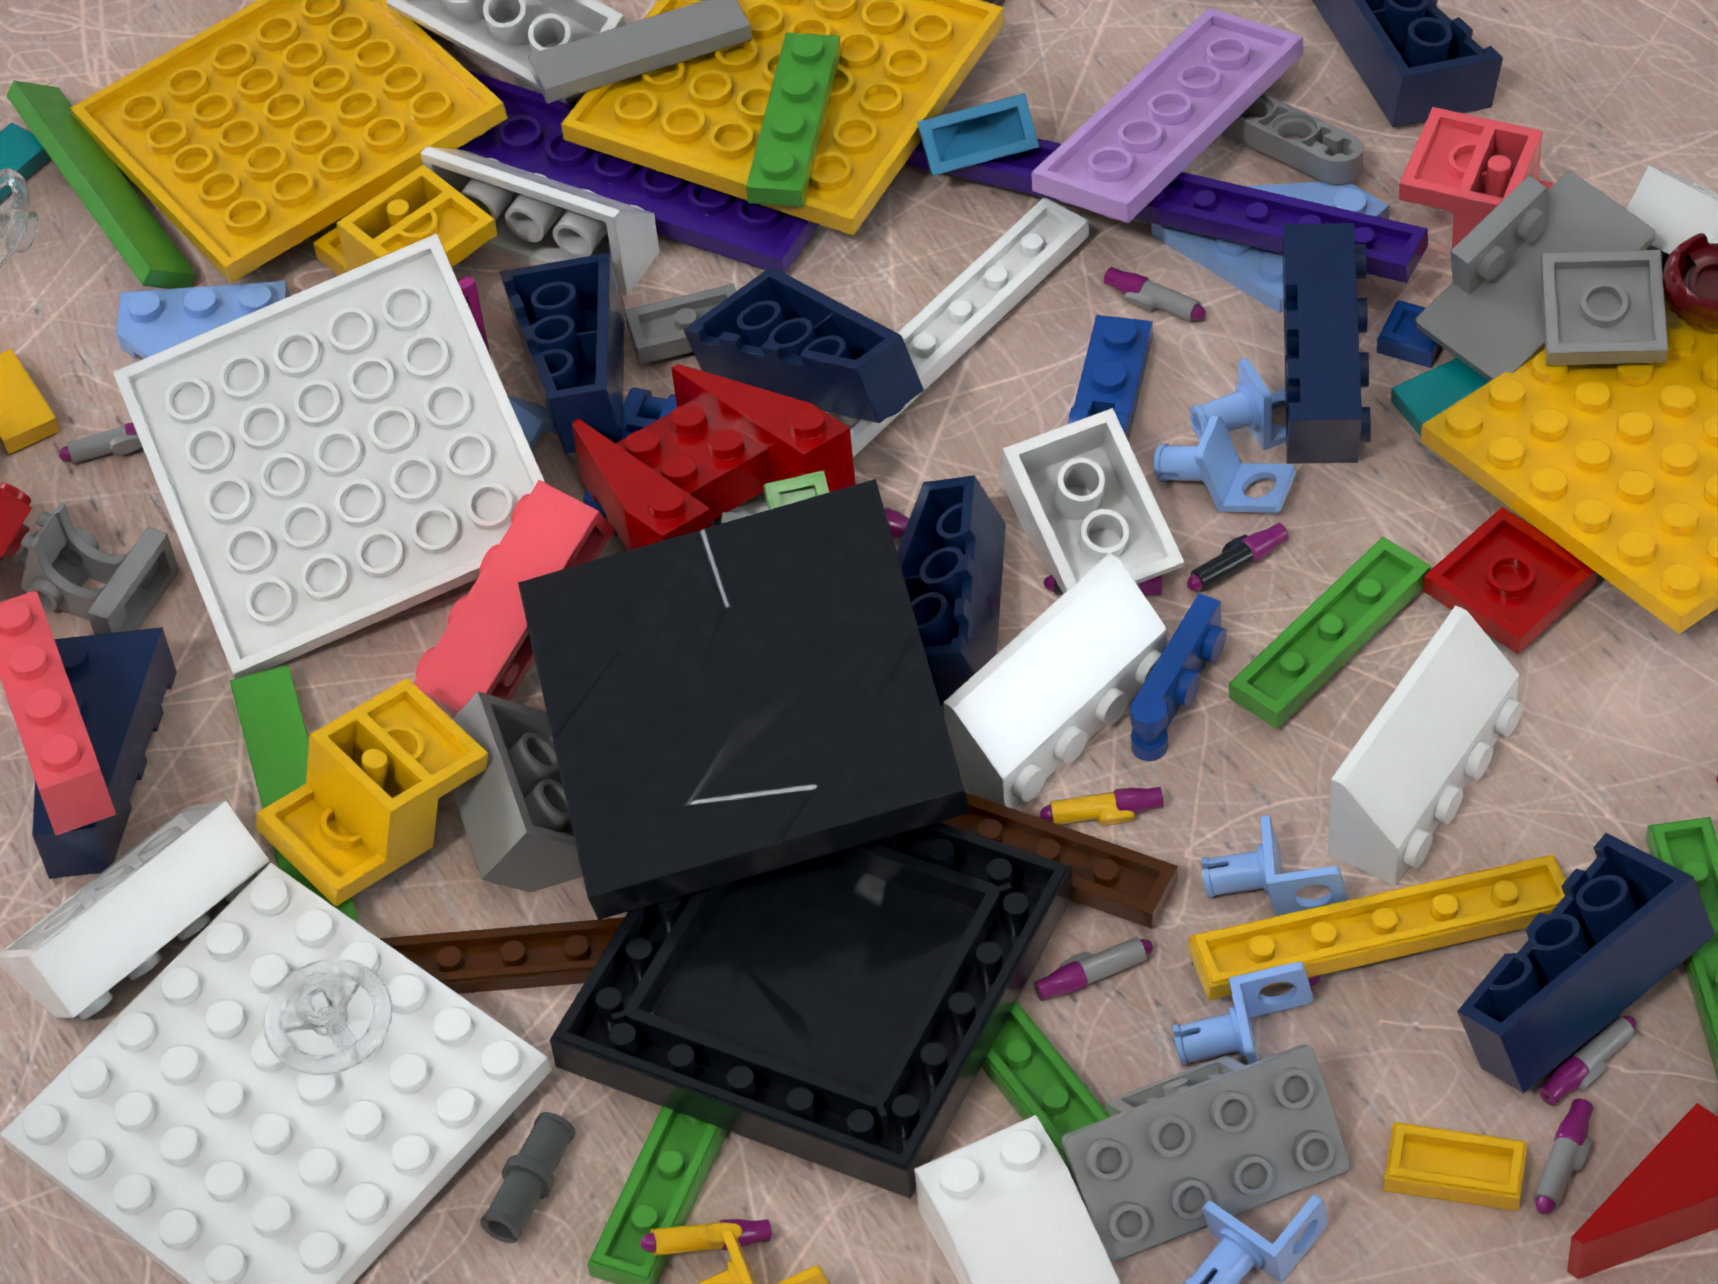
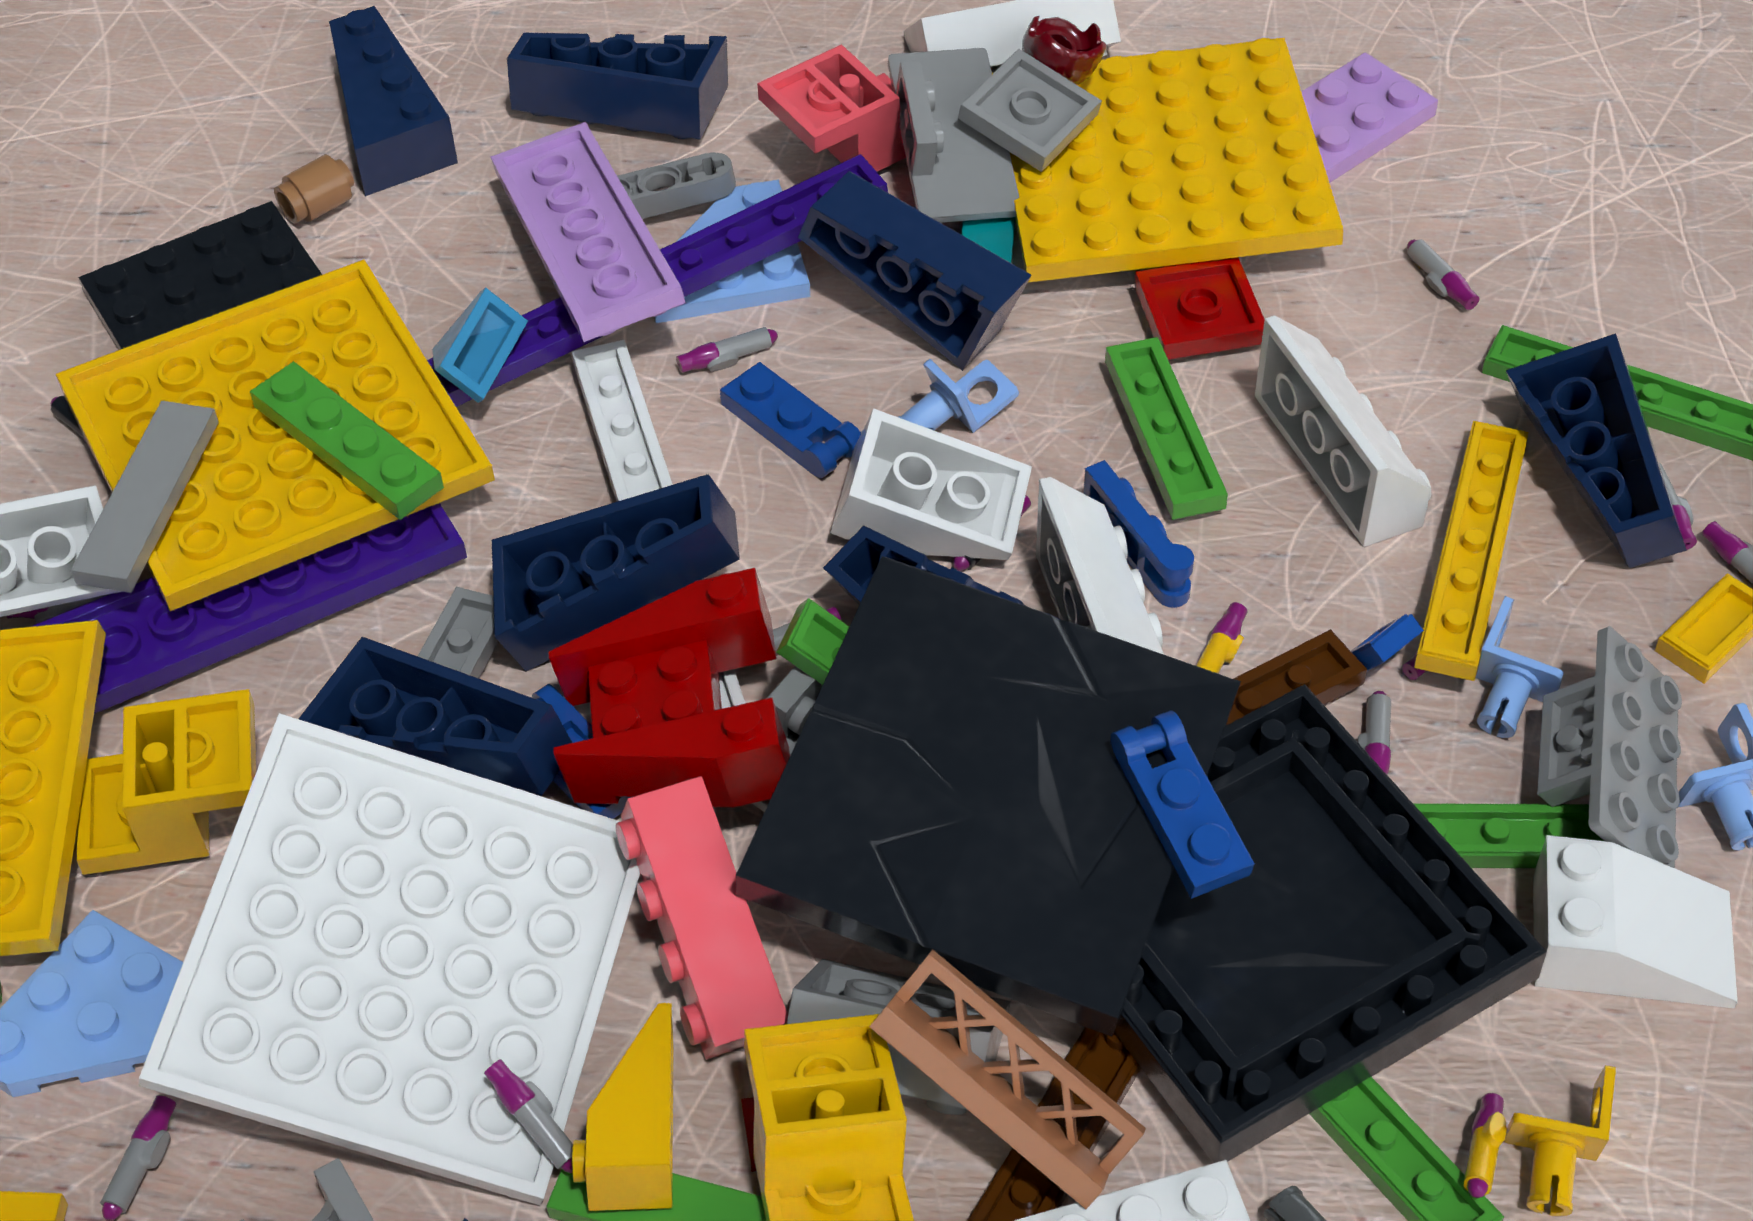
camera: 60 degrees left, 0 degrees up
(280, 617) = (533, 1112): none -> piece
(317, 679) = (631, 1126): none -> yellow slope
(483, 870) = (991, 1097): none -> nougat fence
(548, 219) = (278, 659): white slope -> none
(802, 816) = (1182, 805): none -> blue plate
(1192, 912) = (1387, 641): none -> blue tile
(1236, 556) = (1035, 440): piece -> none
(1248, 407) = (907, 346): light blue bracket -> none
(1264, 870) = (1374, 579): light blue bracket -> none

